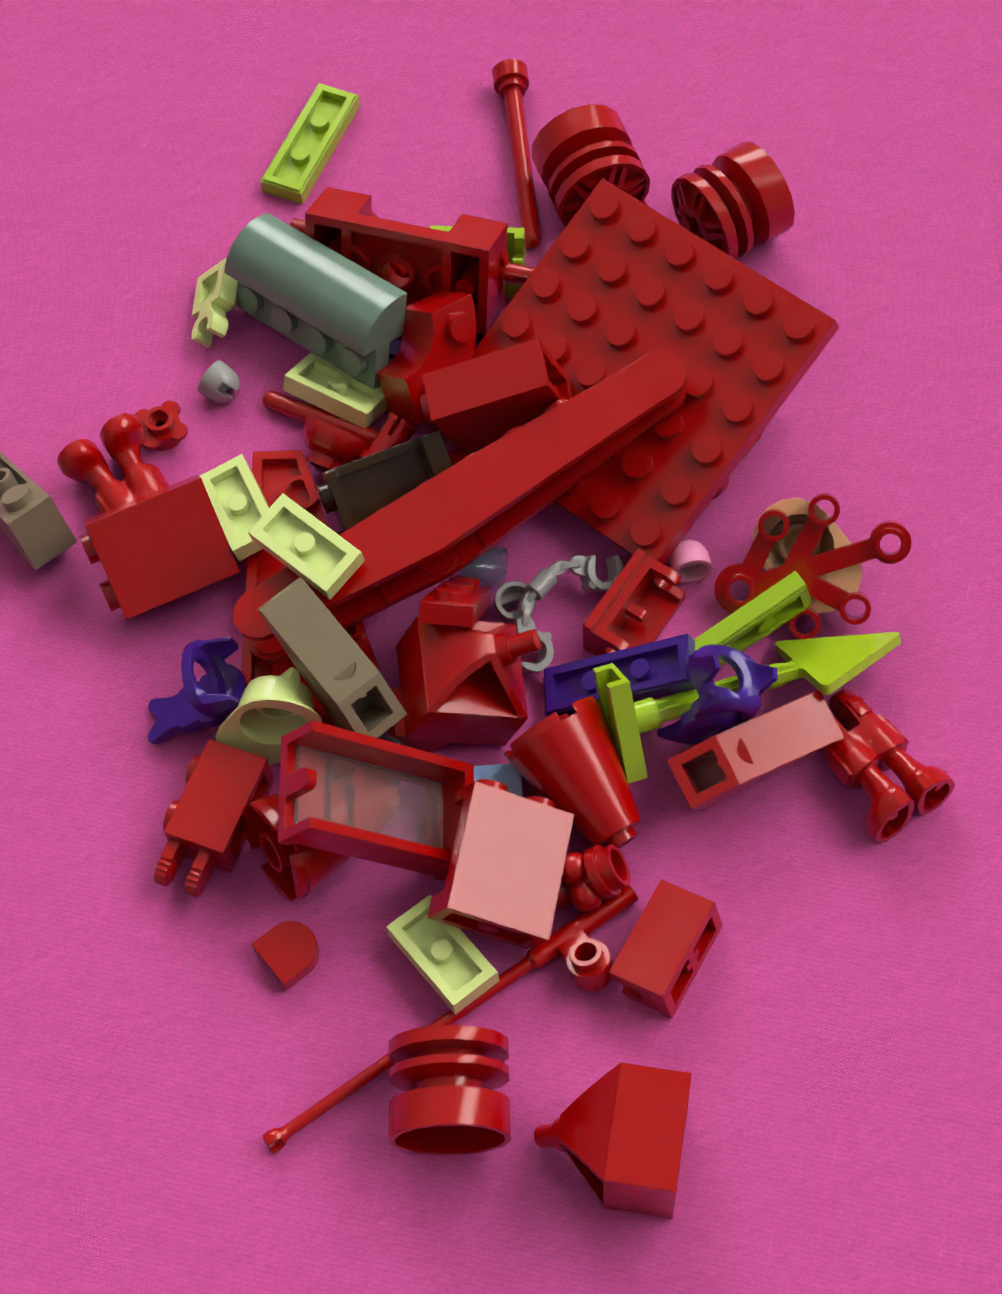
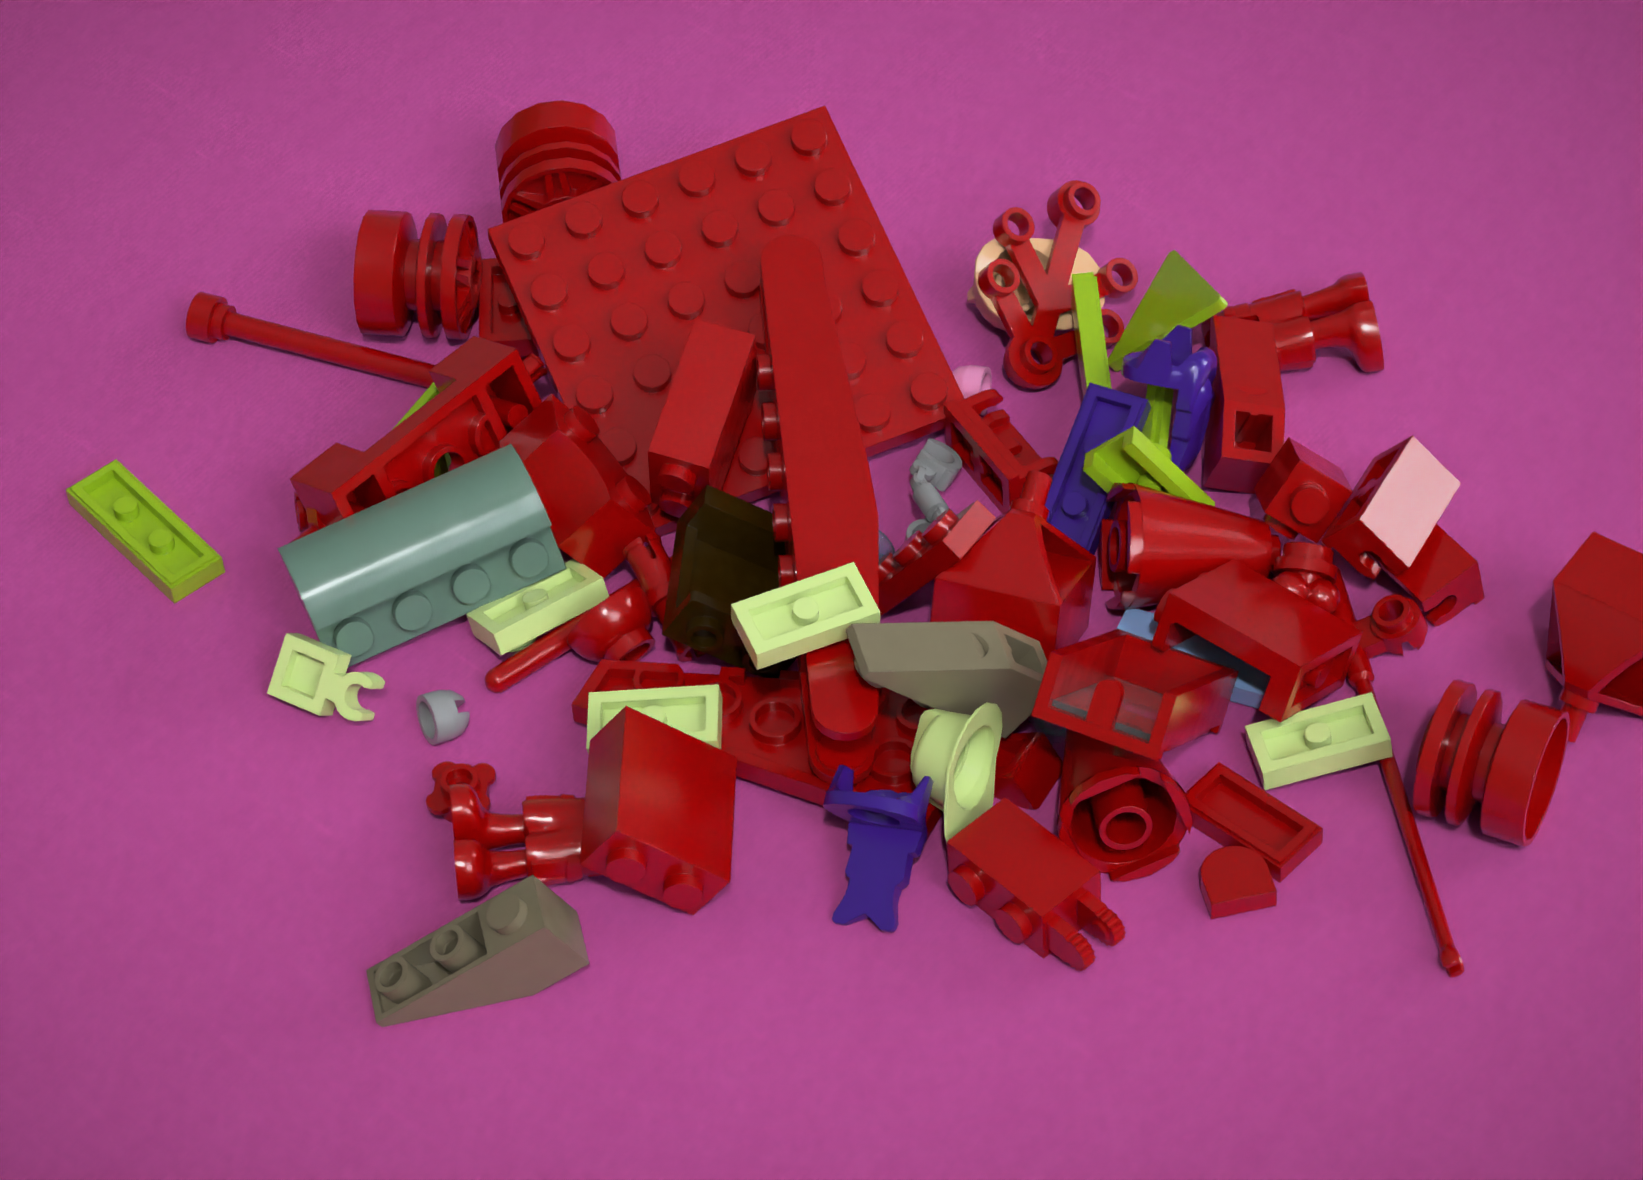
camera: 65 degrees left, 15 degrees down
(353, 938) = (1247, 816): none -> red tile
(667, 834) = (1301, 492): none -> red brick
(676, 909) = (1392, 509): none -> hinge

